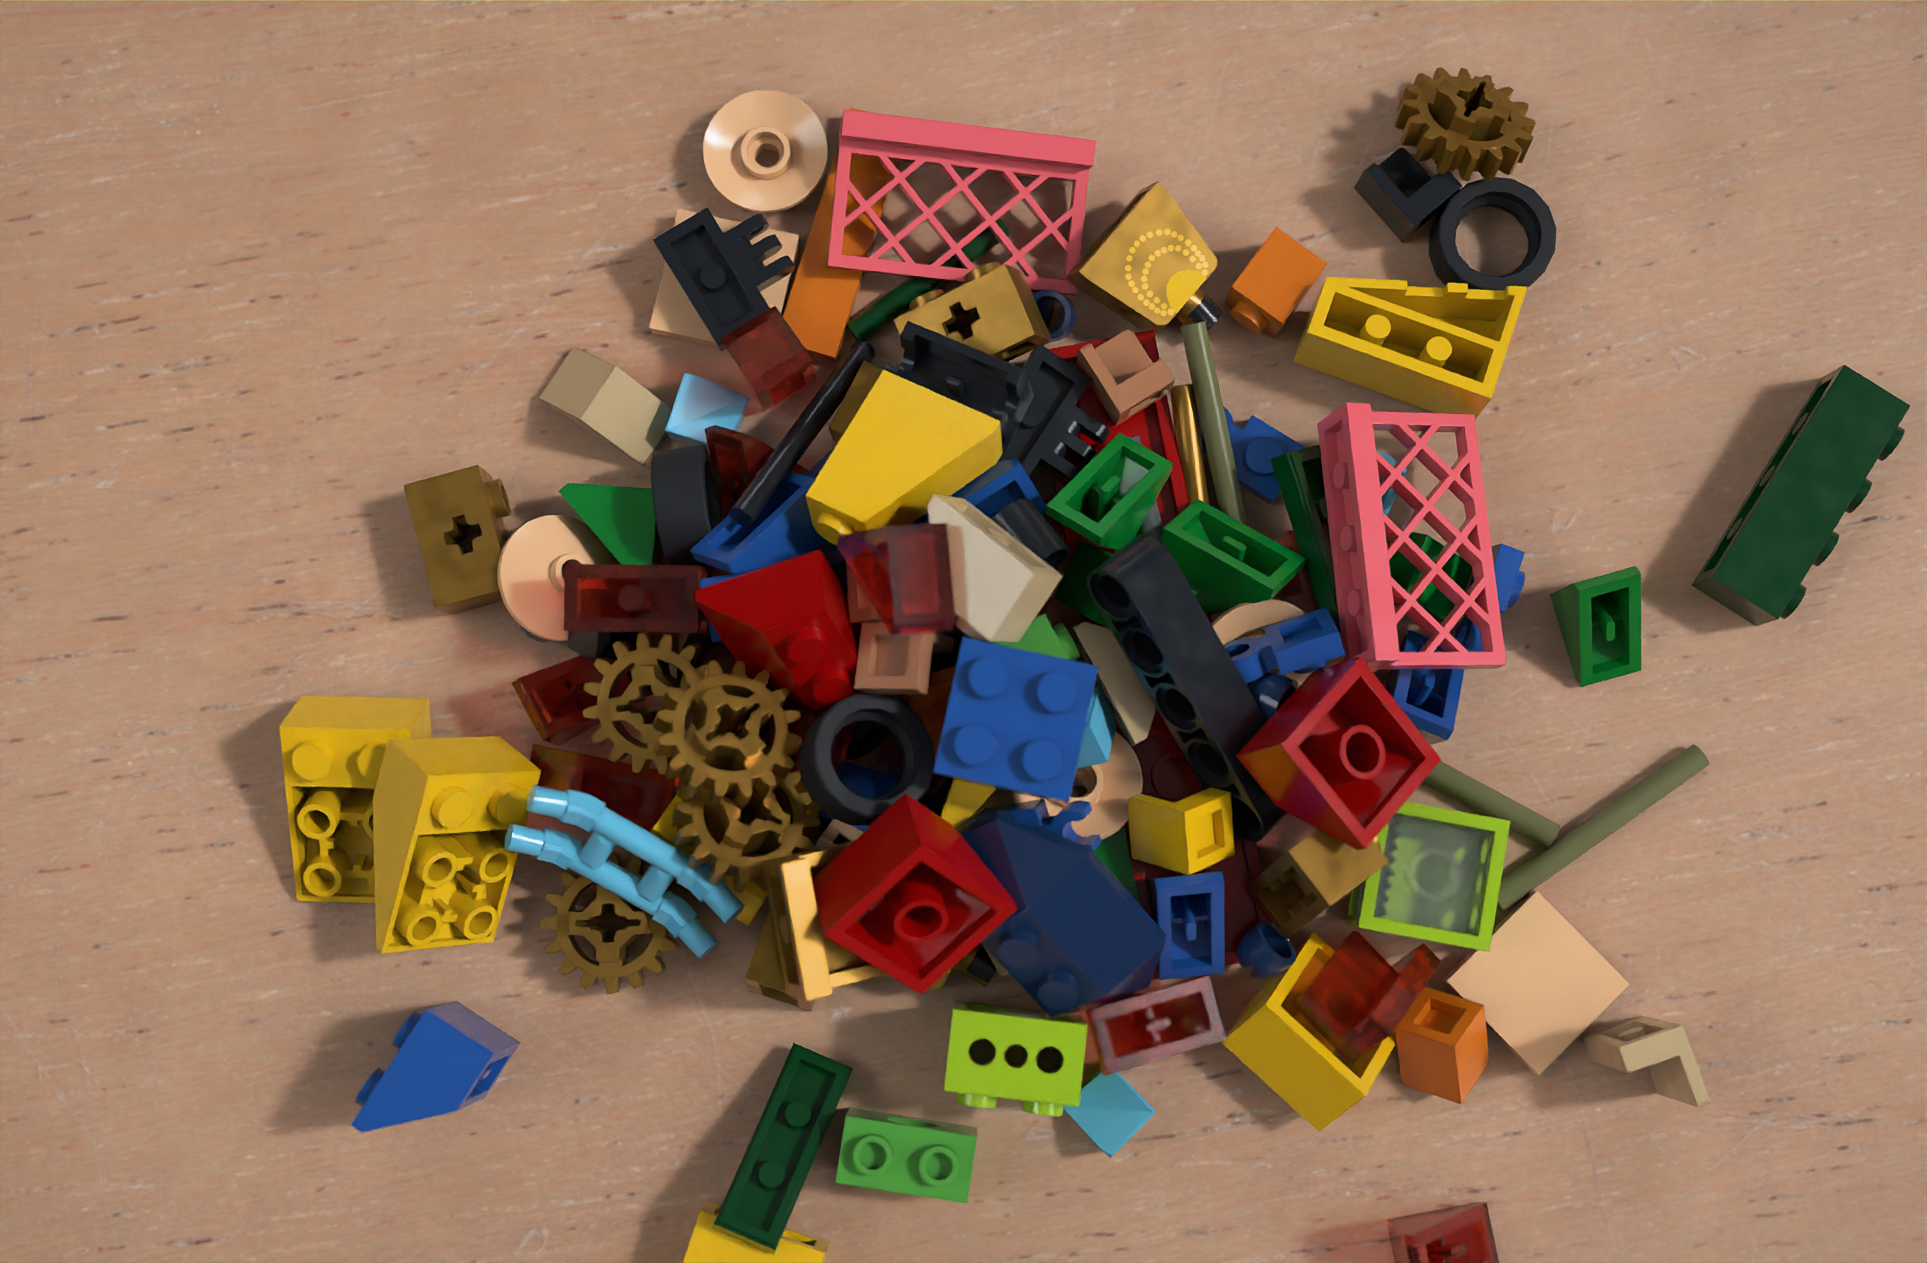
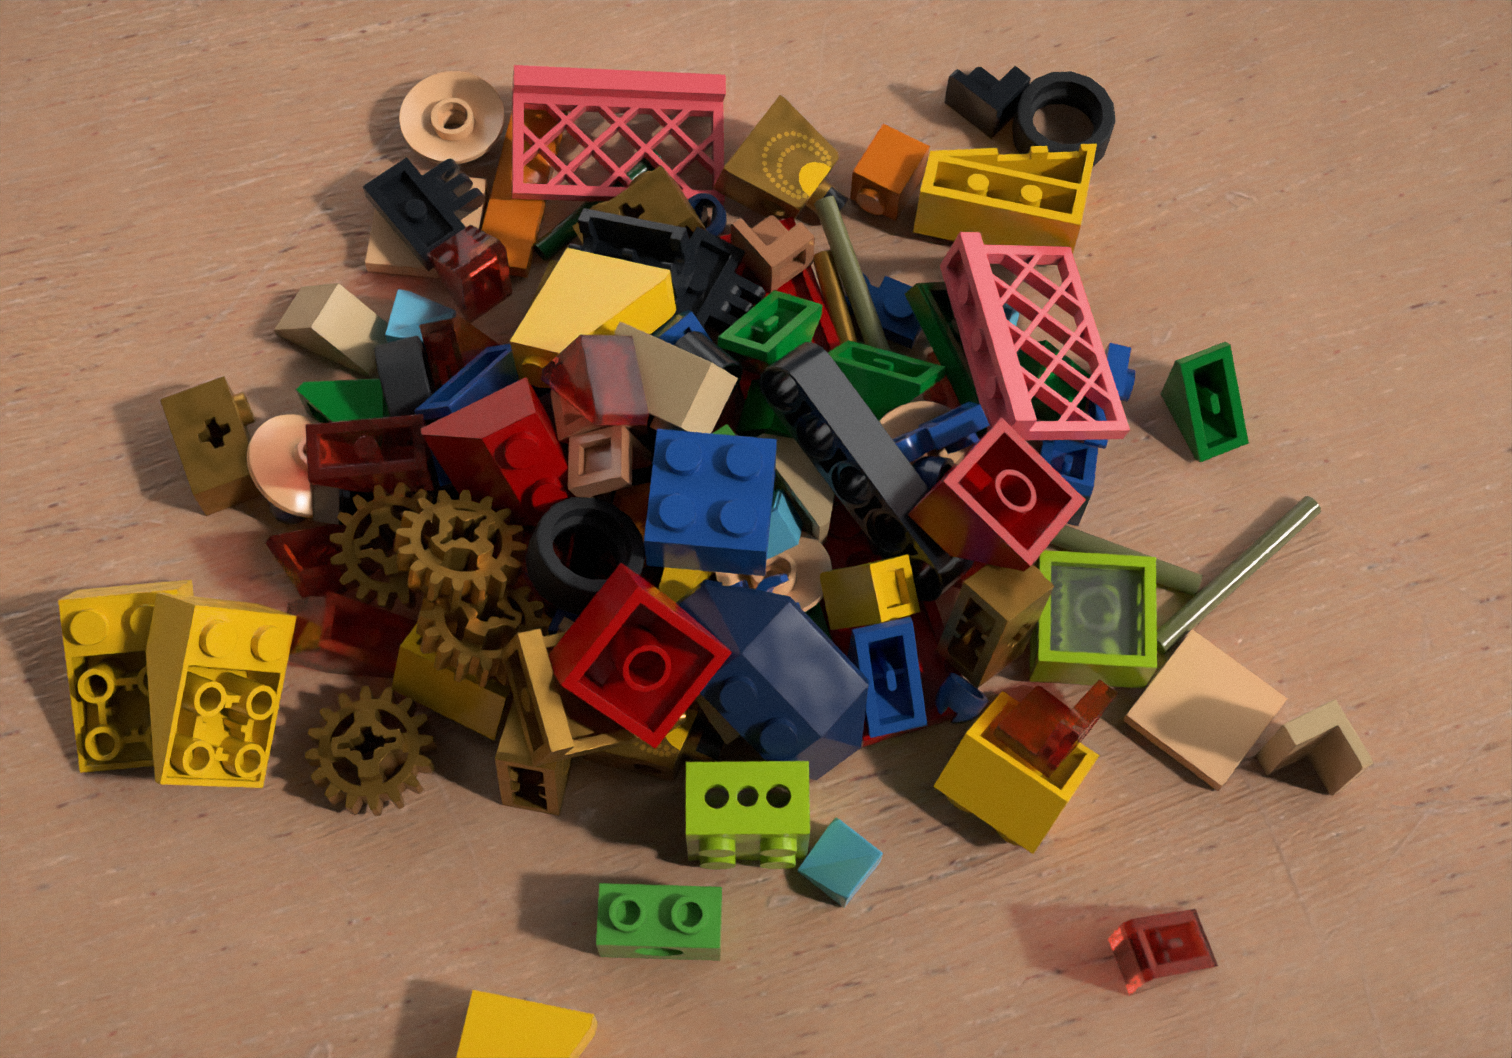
camera: 10 degrees left, 15 degrees down
(441, 1066) = (216, 892): blue slope -> none
(592, 863) = (347, 686): medium azure piece -> none
(782, 1149) = (544, 930): dark green tile -> none
(800, 435) = (497, 325): black bar -> none
(1155, 1024) = (872, 775): clear red slope -> none
(1442, 1044) = (1131, 769): orange panel -> none
(1464, 124) = (1025, 36): pearl gold gear -> none
(1802, 496) = (1354, 289): dark green brick -> none

